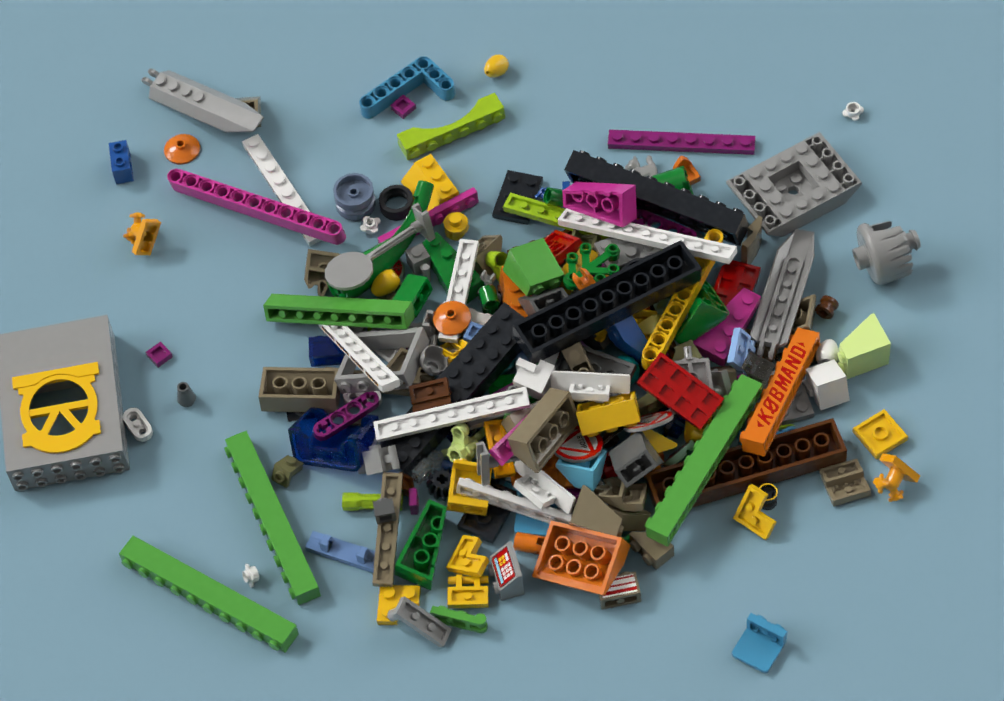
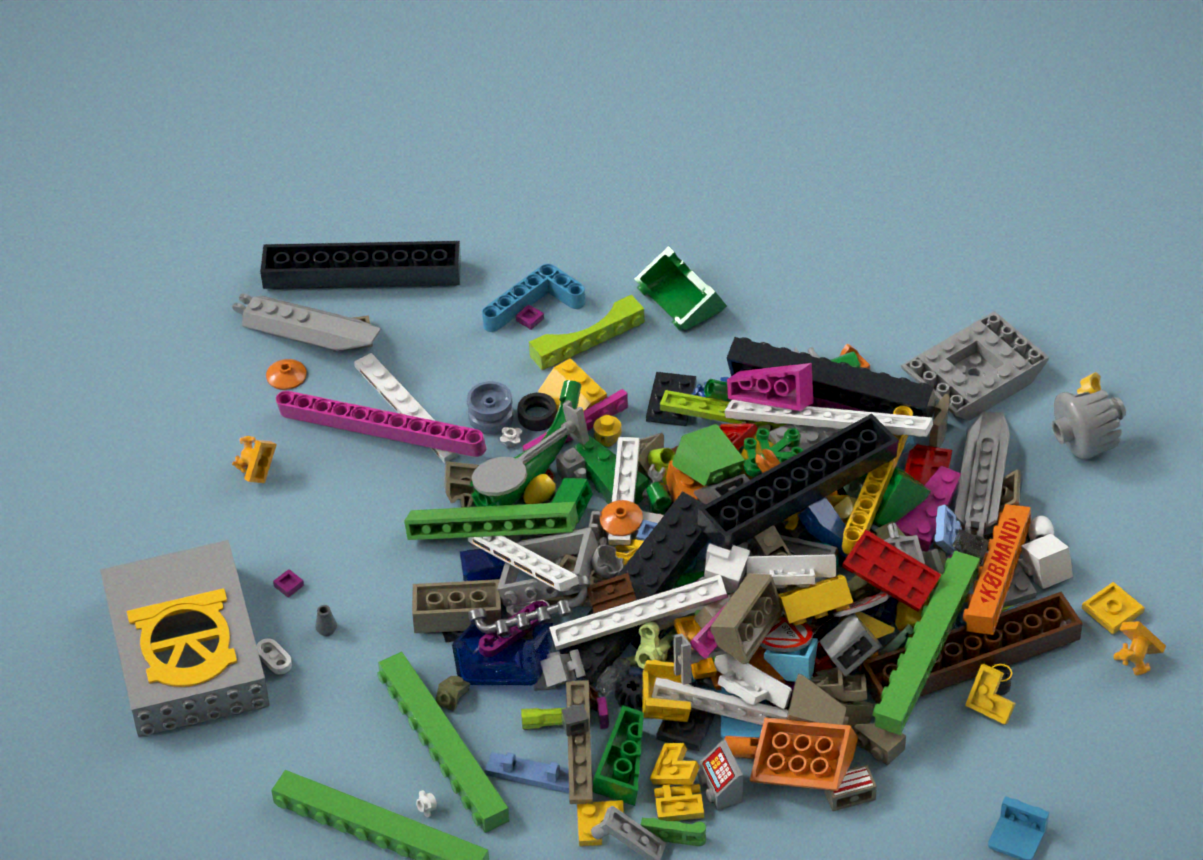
camera: 10 degrees left, 10 degrees down
(121, 162) = (220, 389): blue brick -> none
(259, 45) = (361, 264): none -> black brick
(369, 408) = (523, 620): none -> flat silver bar
(496, 66) = (628, 269): yellow animal -> none
(539, 90) = (679, 291): none -> green windscreen
(681, 142) = (843, 333): magenta plate -> none
(827, 307) = (1031, 485): reddish brown wheel -> none
(845, 482) = (1082, 659): dark tan slope -> none
(853, 111) = (1024, 291): white plate -> none
(864, 348) = (1083, 520): yellowish green slope -> none
(897, 214) = (1090, 384): none -> yellow piece

